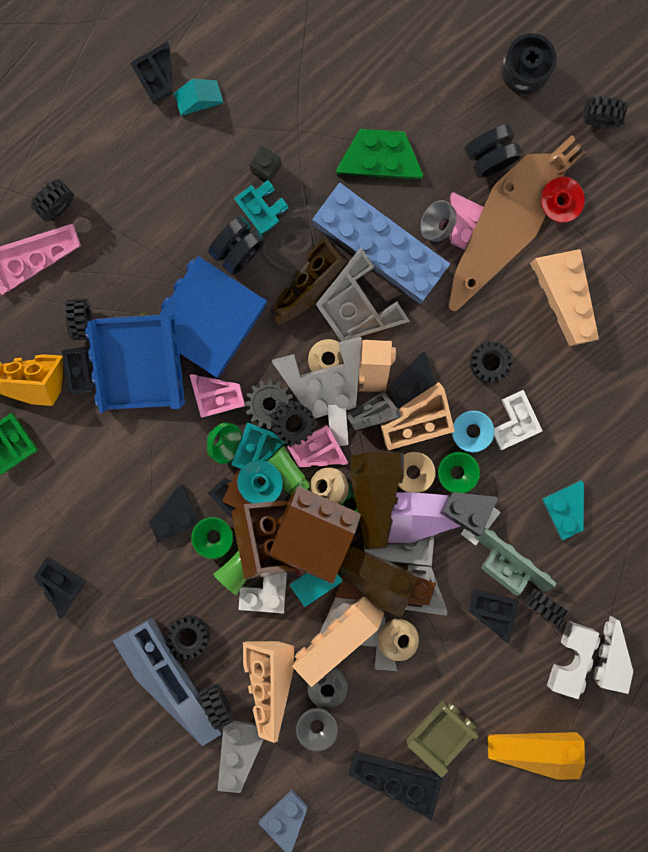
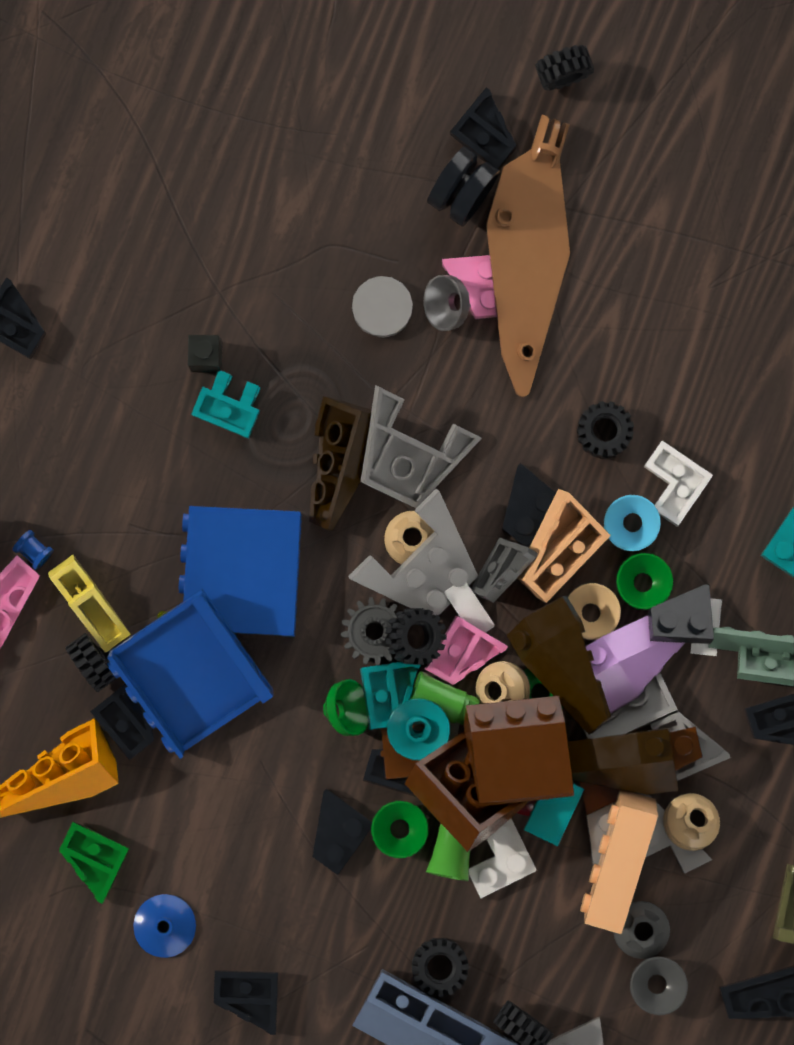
camera: 30 degrees left, 5 degrees down
(43, 507) = (180, 920): none -> blue dish
(84, 226) = (33, 549): none -> blue bush
(100, 281) = (88, 603): none -> light yellow slope
(198, 95) = (77, 319): teal slope -> none
(216, 395) = (305, 658): bright pink wing -> none
(236, 245) = (223, 467): black wheel -> none
(270, 678) = (564, 953): light nougat wedge -> none
(375, 365) = (473, 512): light nougat wedge -> none
(380, 155) = (333, 265): green wing -> none
(389, 247) = (408, 366): medium blue brick -> none
(396, 200) = (382, 306): none -> light grey tile
(528, 63) = (449, 45): black wheel -> none
(528, 124) = (484, 131): none -> black wing
(568, 294) = (648, 300): light nougat wedge -> none
(571, 196) = (584, 184): red dish -> none

